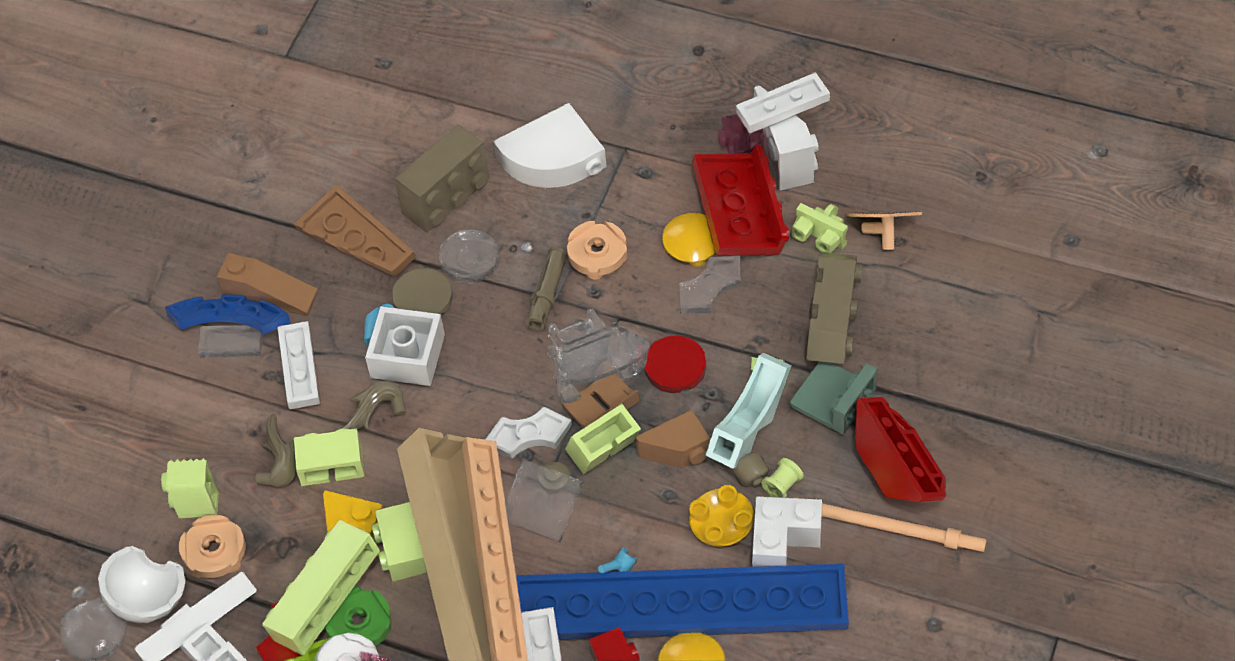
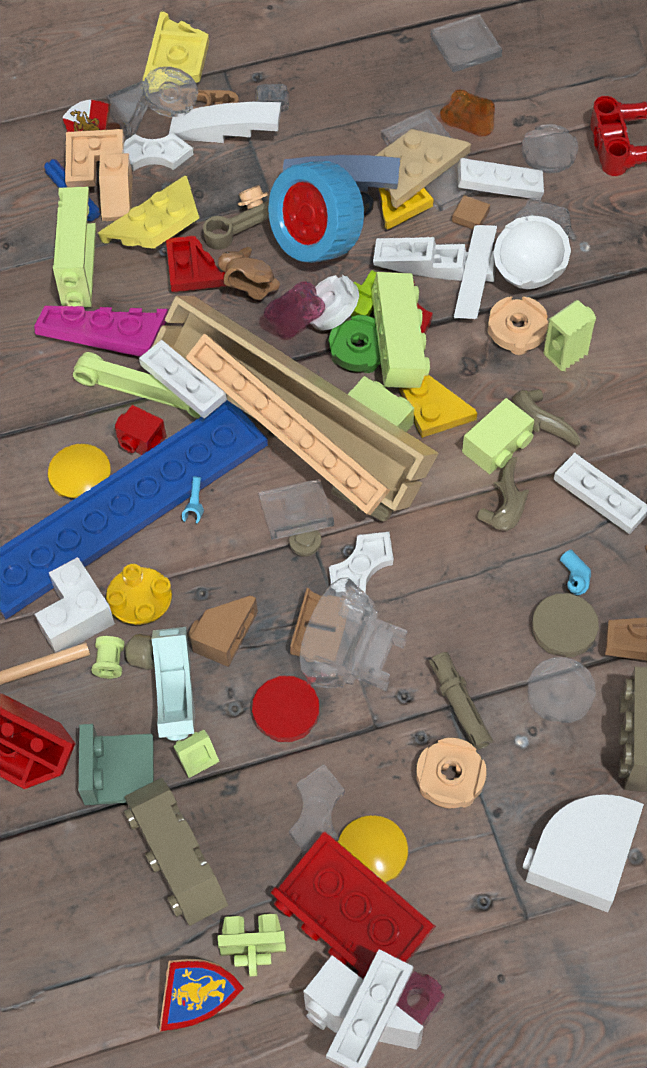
camera: 140 degrees right, 5 degrees up
(405, 346) = (525, 555): white brick -> none
(601, 438) = (291, 572): yellowish green piece -> none

